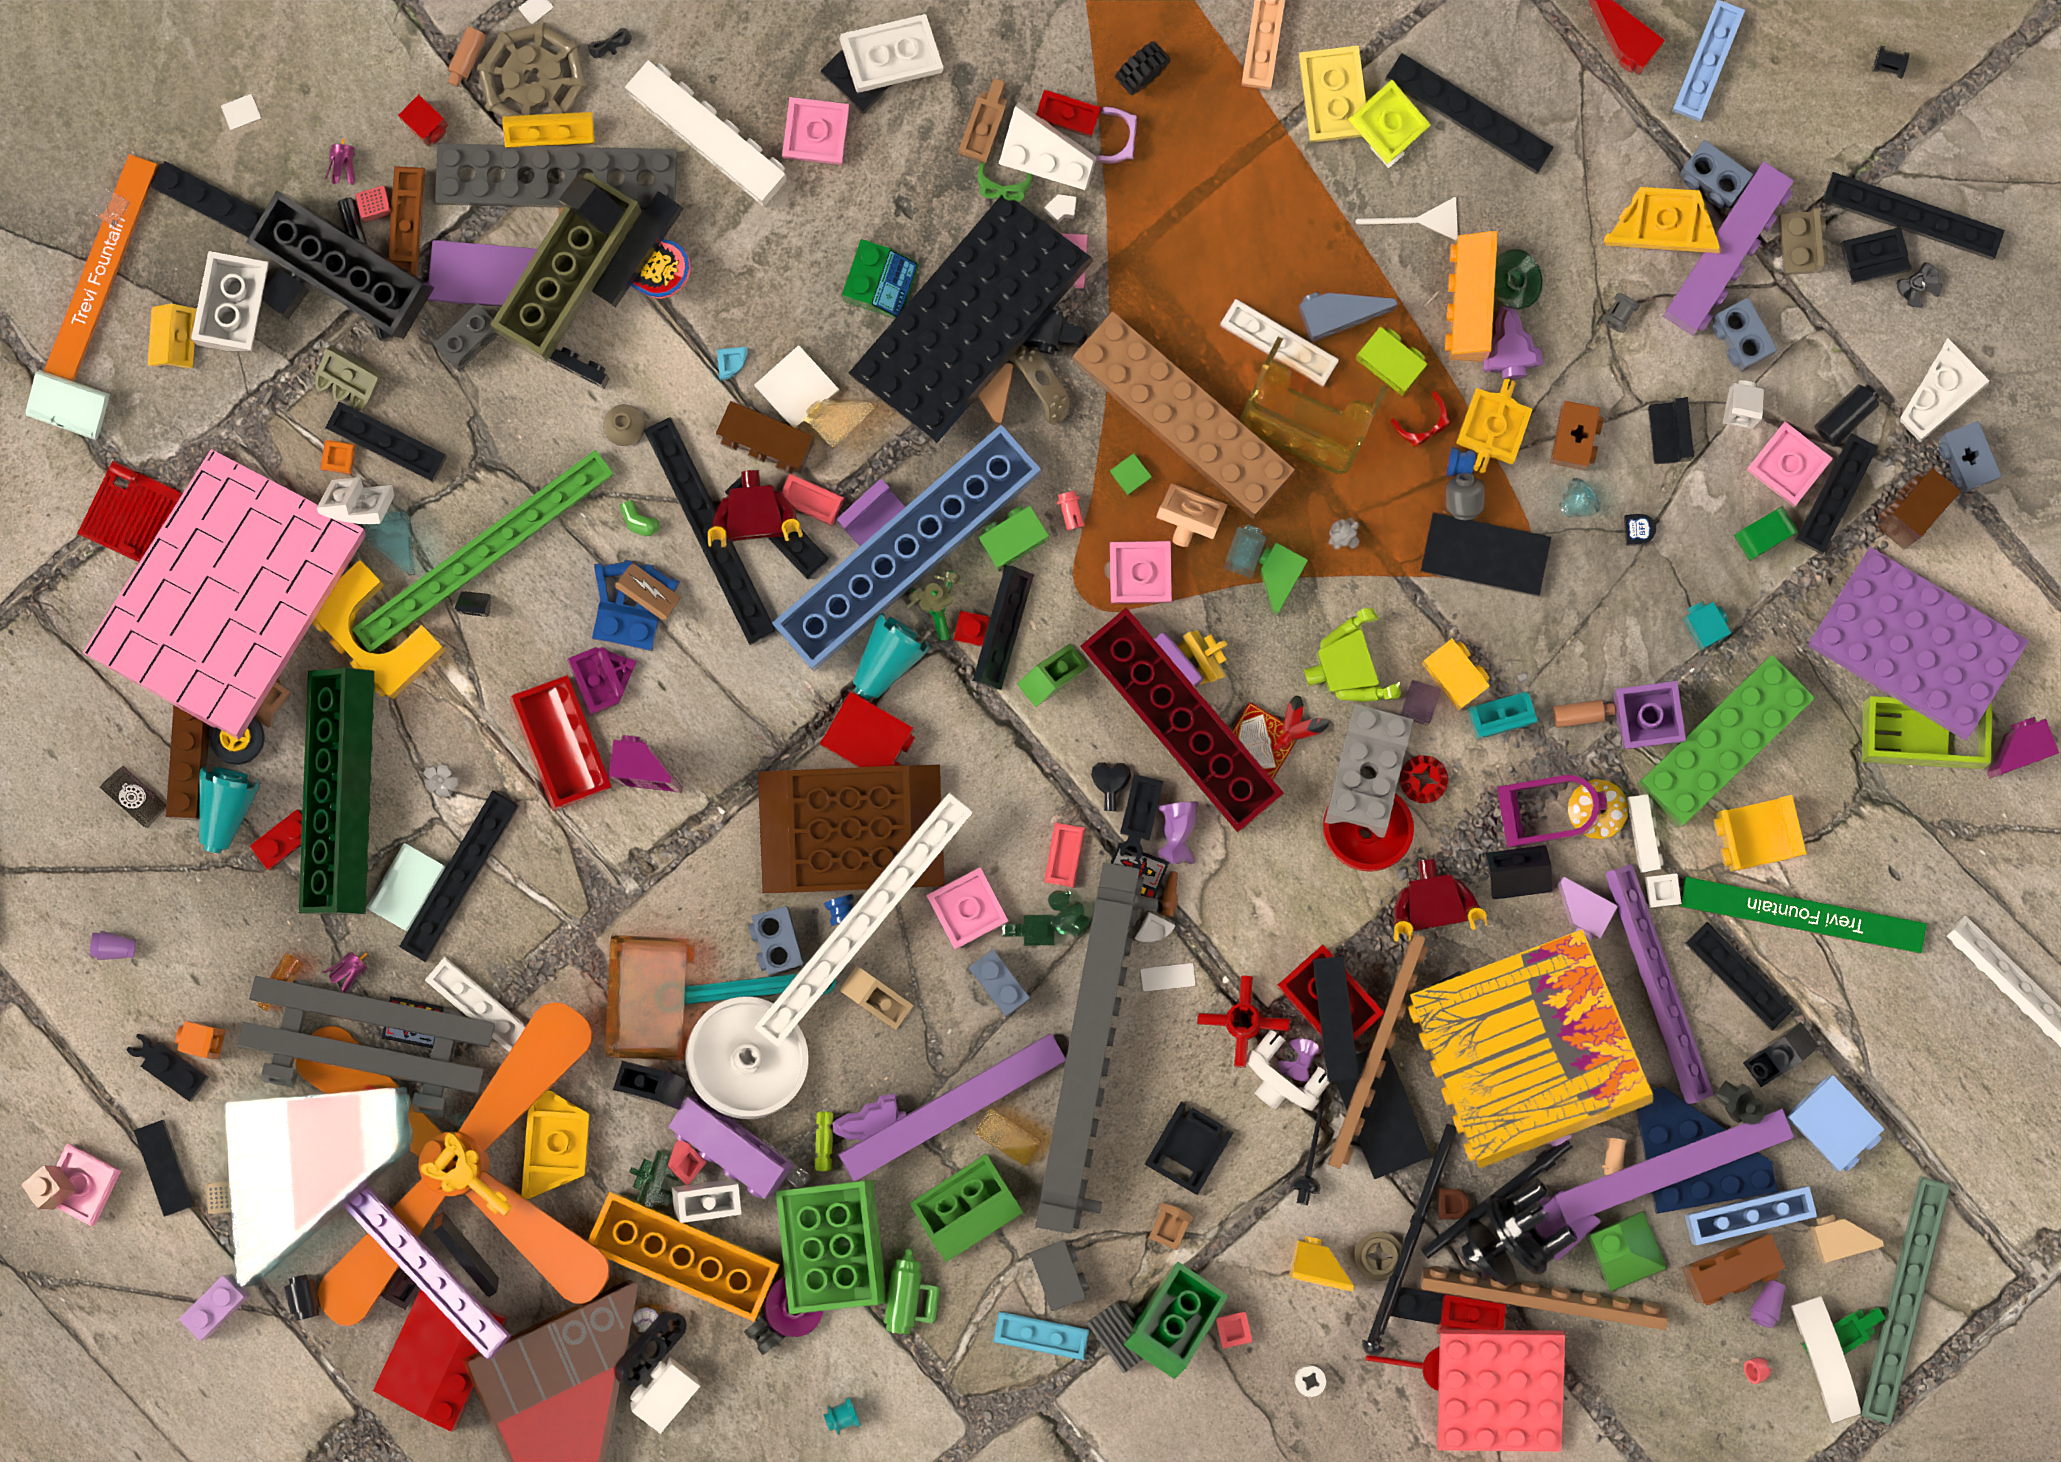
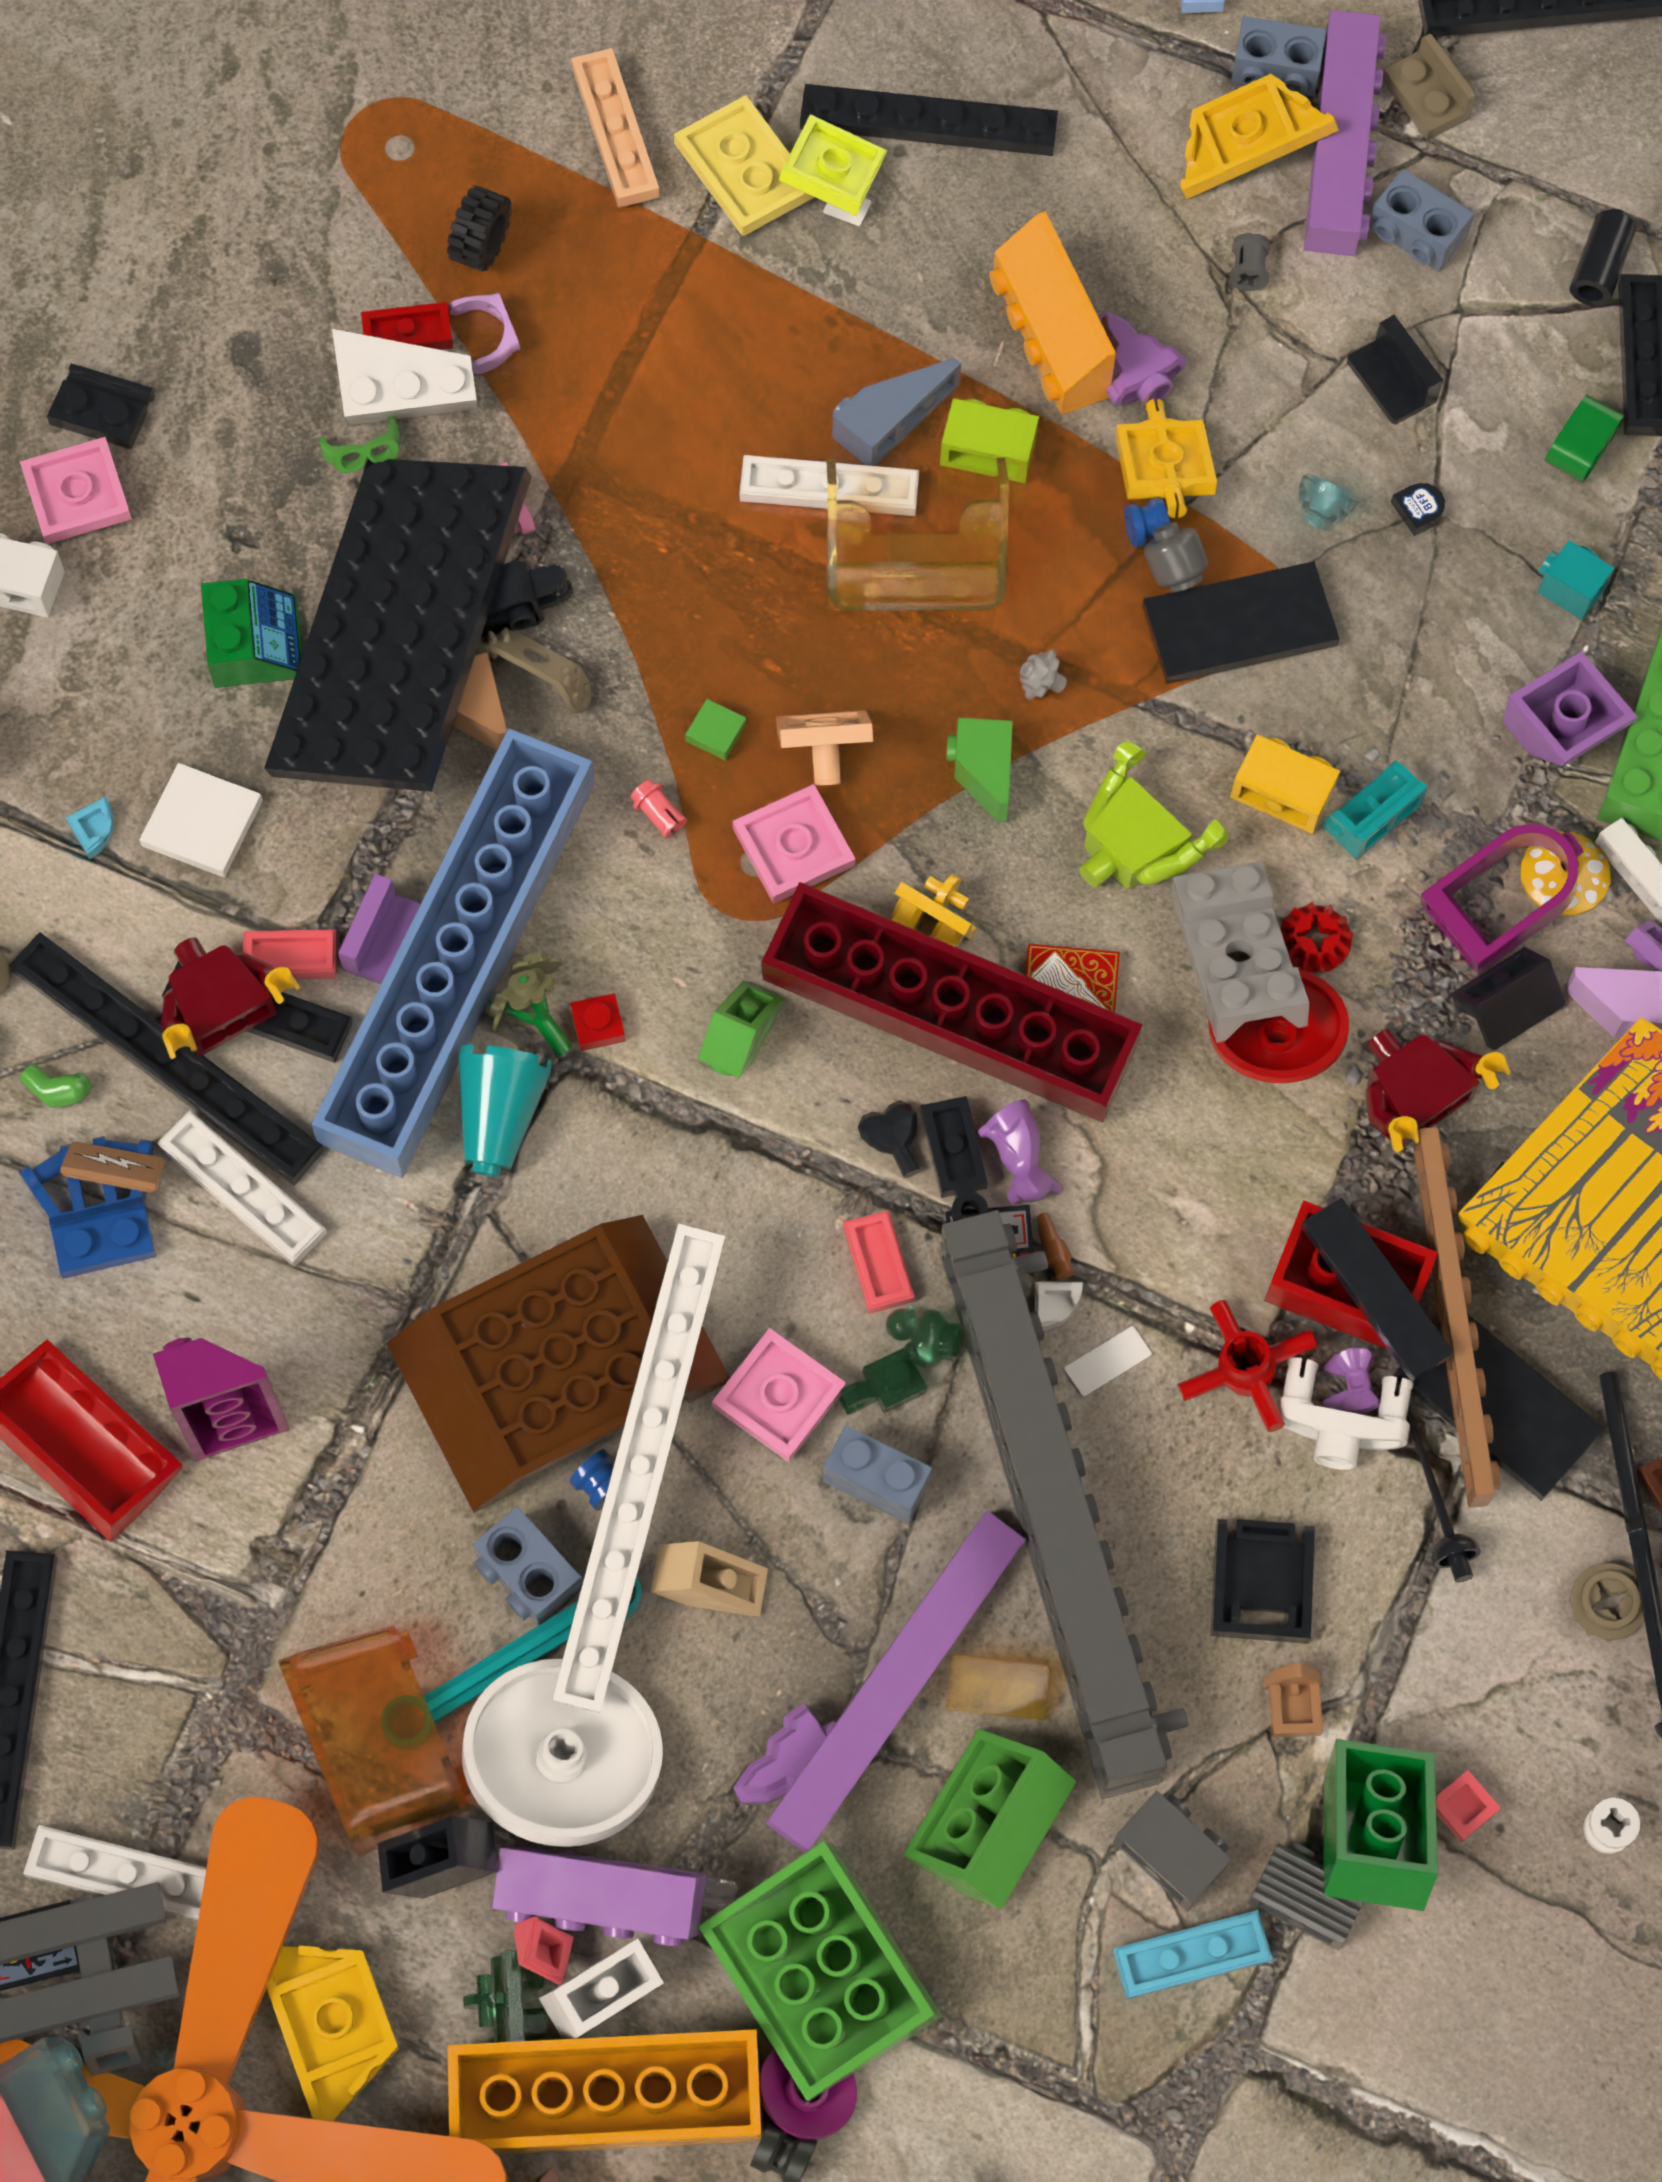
camera: 35 degrees left, 15 degrees down
(464, 1174) = (211, 2122): yellow piece -> none
(601, 677) = (97, 1322): magenta slope -> none
(718, 633) = (242, 1188): none -> white tile
(764, 438) = (186, 898): reddish brown brick -> none
(824, 1141) = (733, 1824): lime axle -> none
(836, 418) = (274, 829): clear yellow slope -> none
(867, 734) = (516, 1218): red brick -> none
(891, 53) = (133, 351): white plate -> none
(904, 1294) = (964, 1993): bright green piece -> none
(984, 123) = (300, 388): medium nougat hinge -> none
(1003, 627) = (641, 997): black plate -> none
(1013, 537) = (596, 875): bright green brick -> none
(1061, 207) = (455, 444): white piece -> none
(1179, 659) = (908, 916): medium lavender tile -> none
(1183, 415) = (749, 621): medium nougat brick -> none
(1245, 551) = (923, 747): clear light blue brick -> none
(1294, 729) = (1110, 949): red piece -> none
(1318, 1265) = (1538, 1652): yellow slope -> none
(1420, 438) = (1076, 518): red cap -> none
(1420, 702) = (1258, 836): panel -> none
(1440, 219) = (958, 255): white piece -> none
(1525, 278) = (1102, 276): clear green dish -> none
(1565, 450) = (1276, 427): dark orange brick -> none
(1582, 713) = (1476, 760): nougat cylinder -> none
(1744, 405) = (1470, 299): white slope -> none
(1789, 464) = (1565, 345): bright pink plate -> none
(1876, 255) = (1529, 65): black plate -> none
(1926, 277) = (1604, 66): black piece -> none

